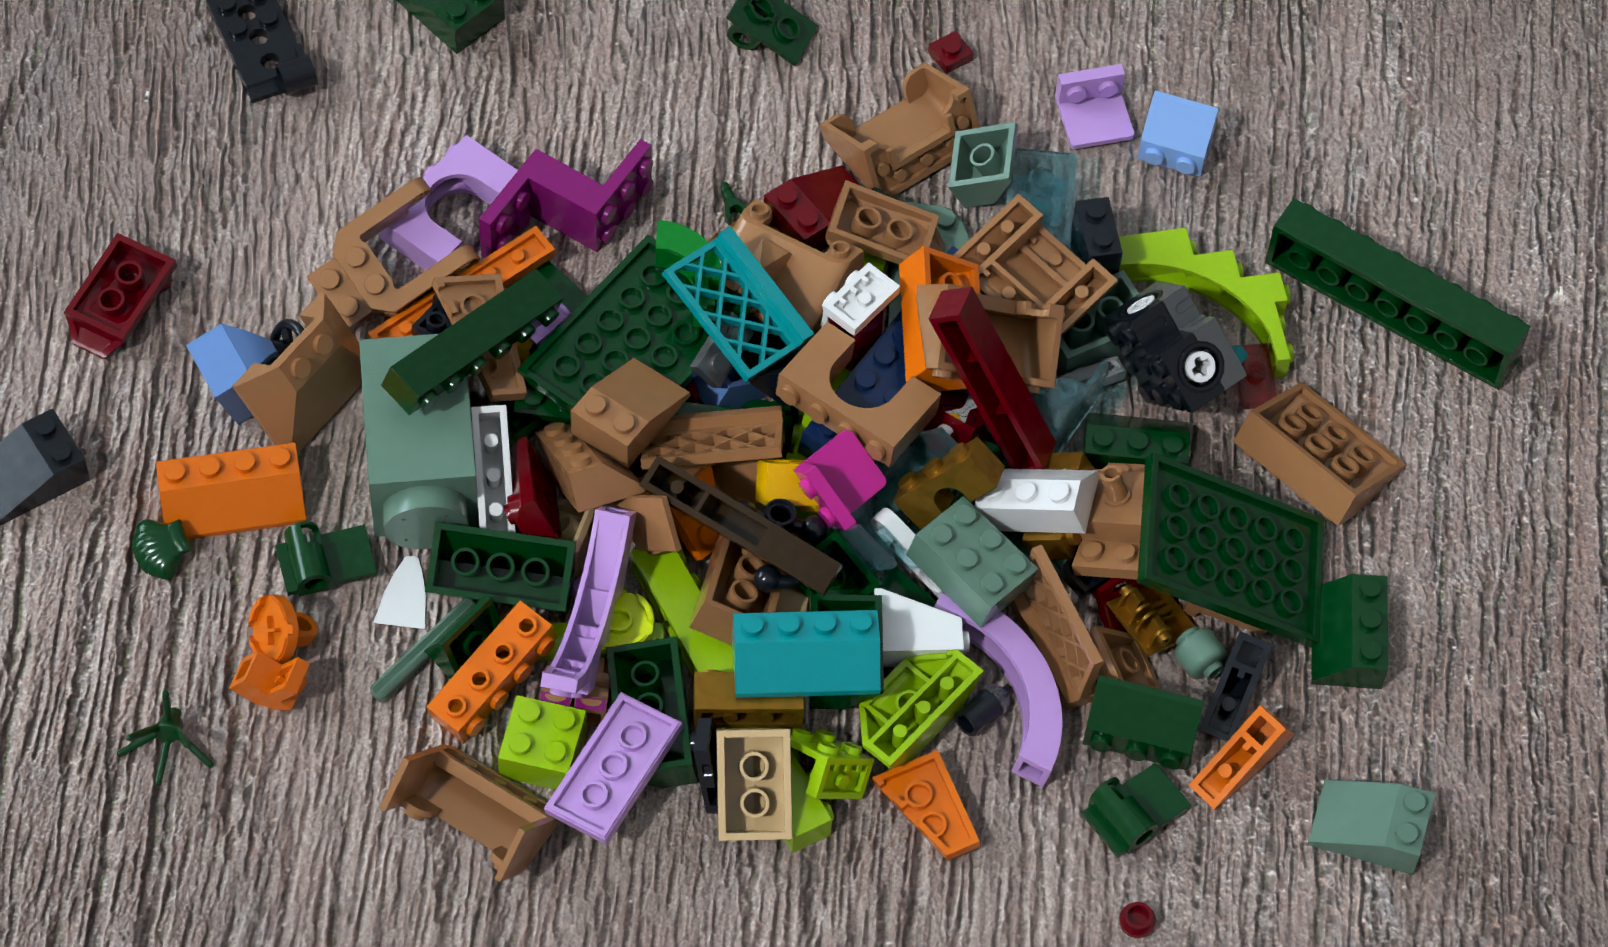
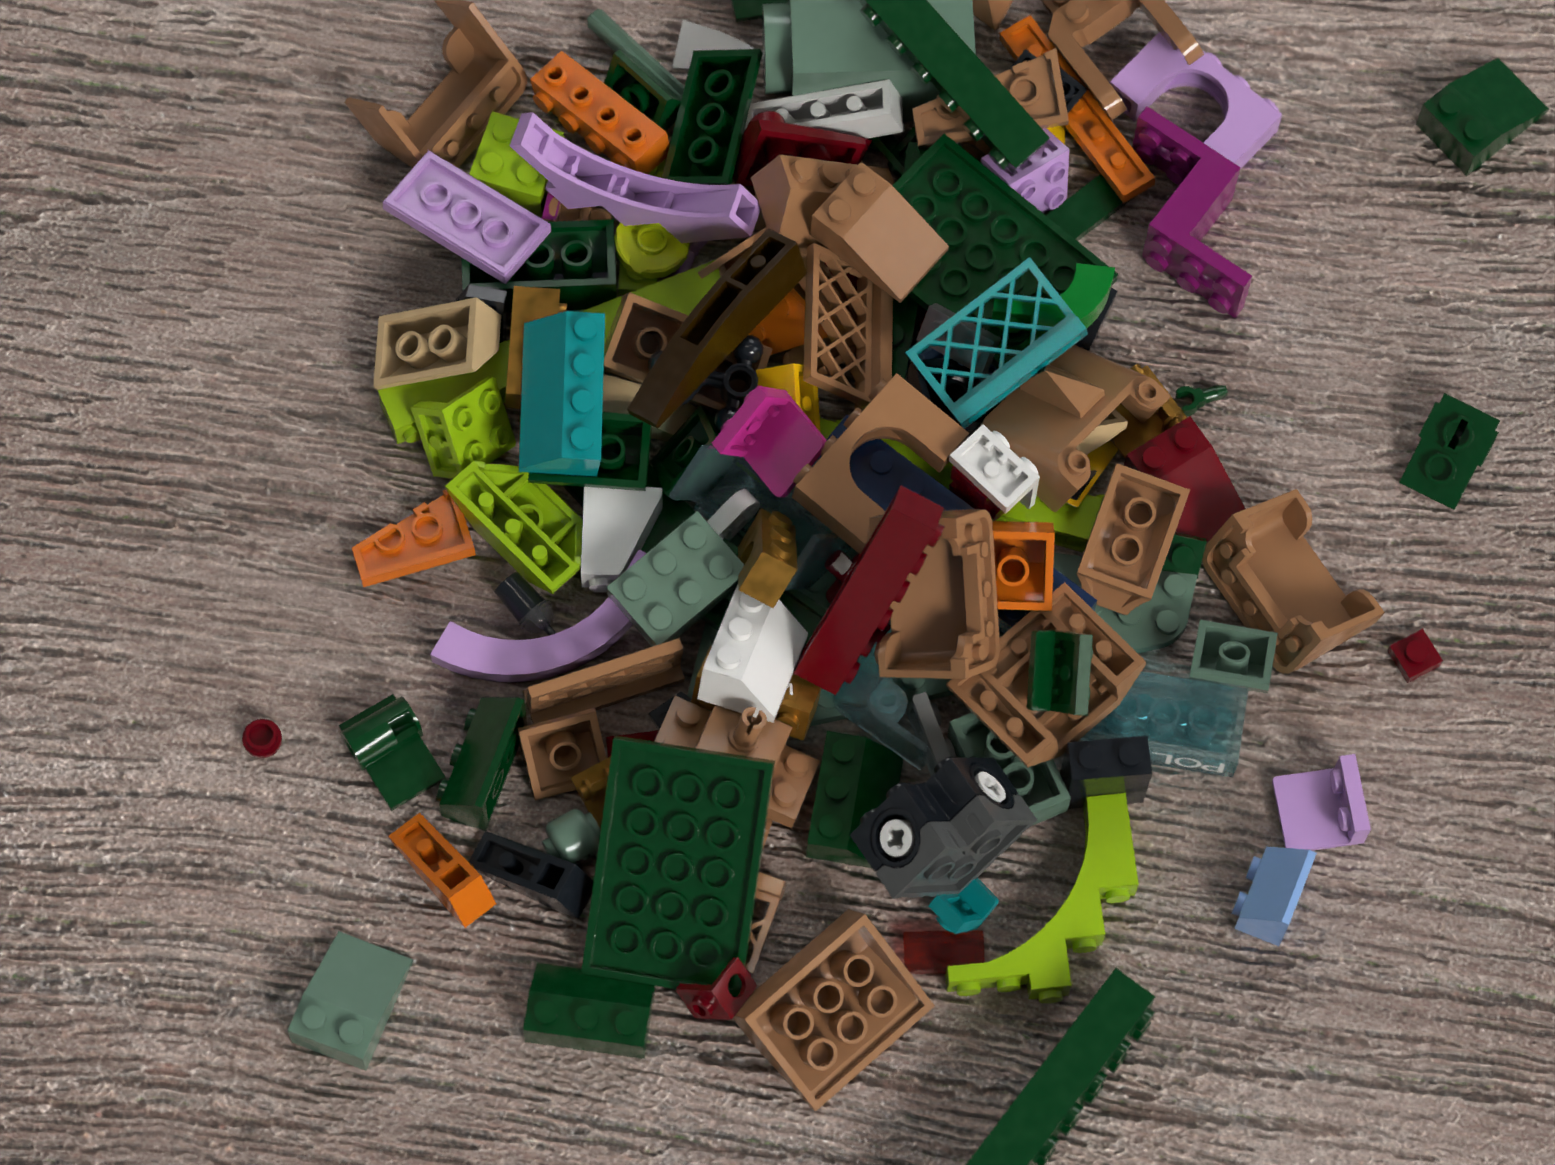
camera: 95 degrees right, 10 degrees up
(1034, 253) = (1059, 671): none -> dark green bracket
(1336, 535) = (715, 1000): none -> dark red bracket

